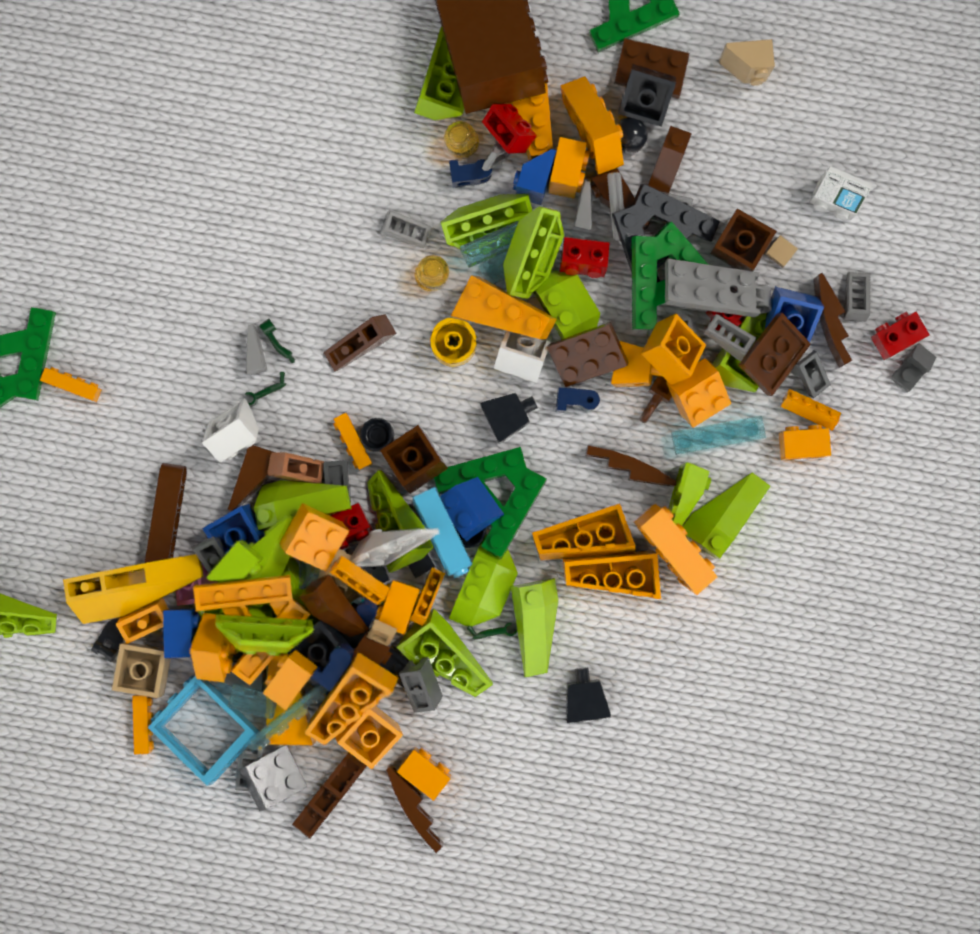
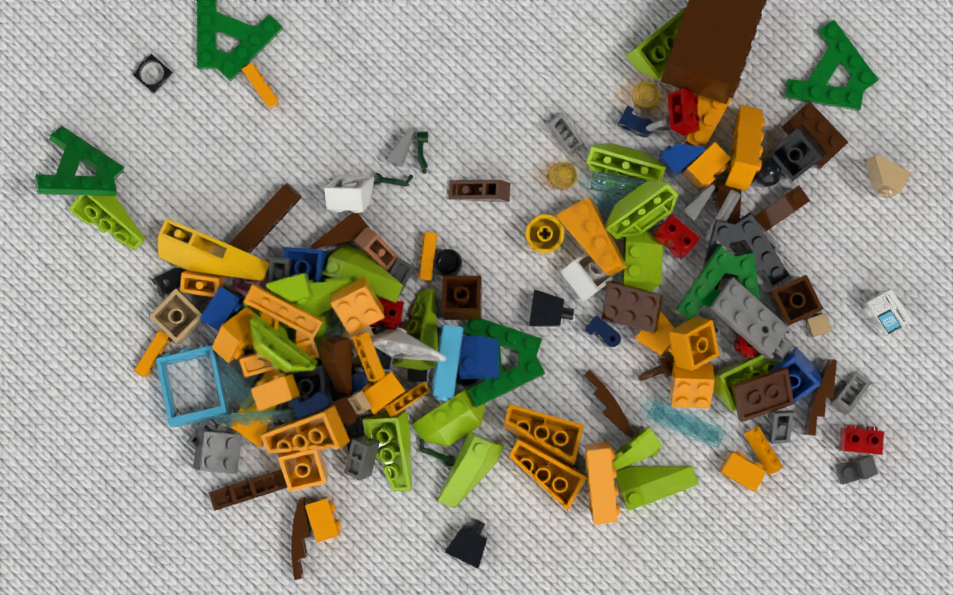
camera: 35 degrees right, 0 degrees up
(731, 347) = (745, 358): light grey slope -> none

